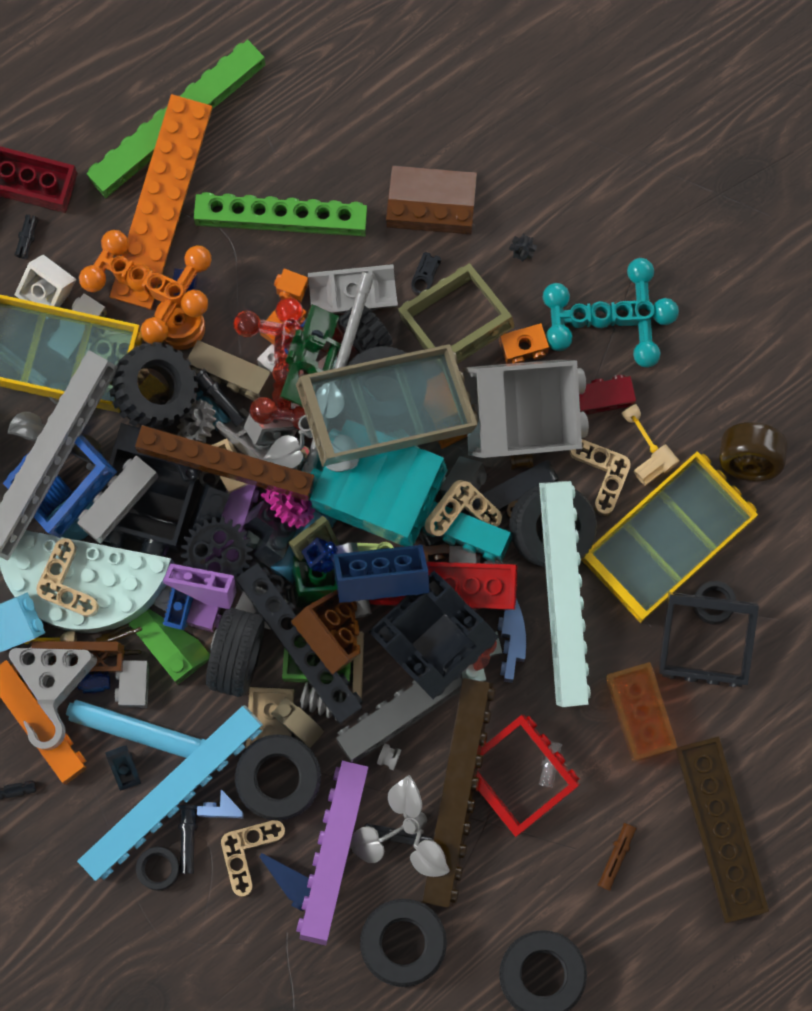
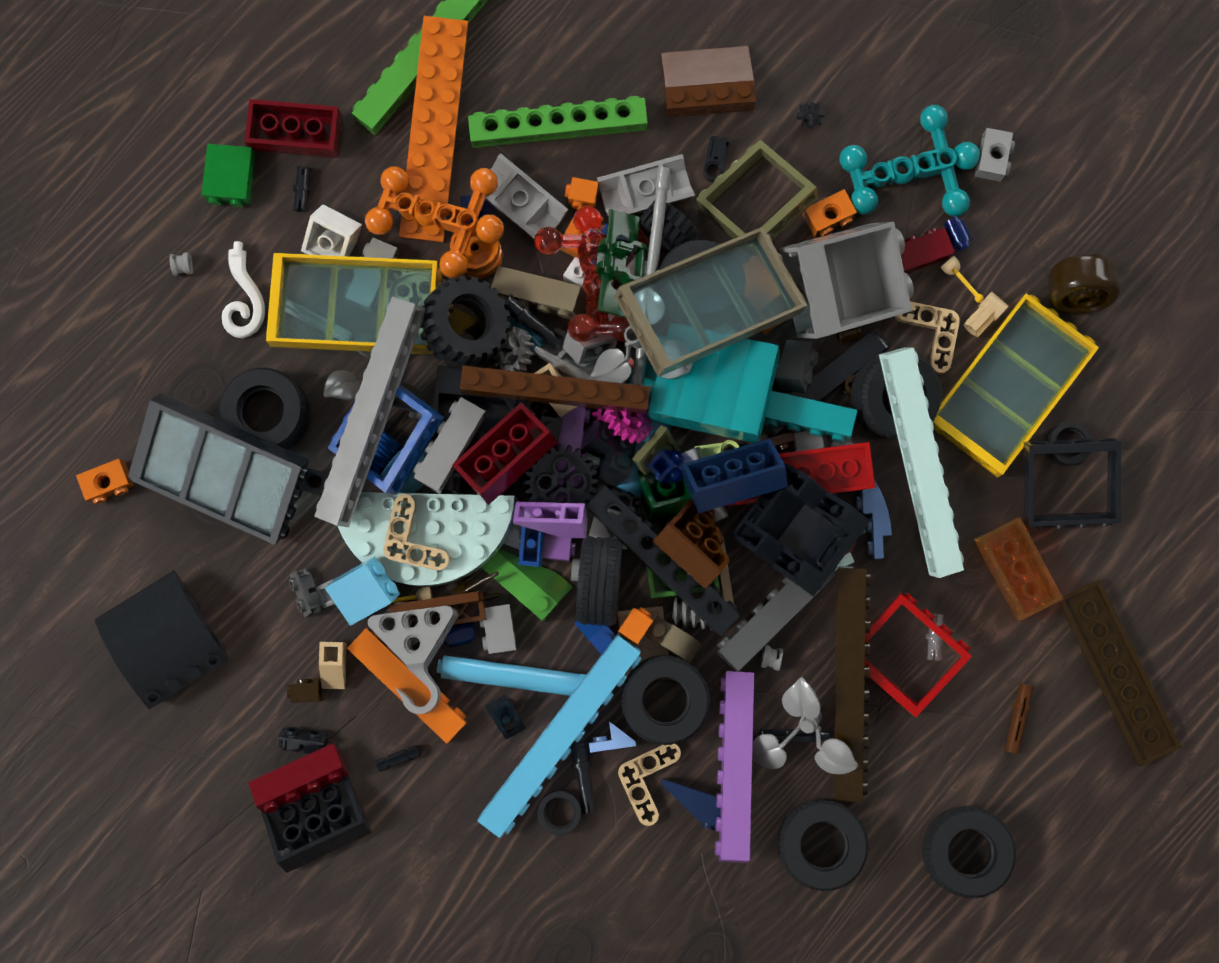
camera: 10 degrees left, 5 degrees up
(167, 515) = (504, 453): none -> dark red brick
(224, 703) = (598, 635): none -> blue slope
(234, 282) = (523, 199): none -> light grey piece
(263, 701) = (636, 625): none -> orange brick
(465, 501) = (804, 387): tan beam -> none
(643, 383) = (958, 233): none -> clear blue brick
(697, 303) = (999, 142): none -> light grey brick

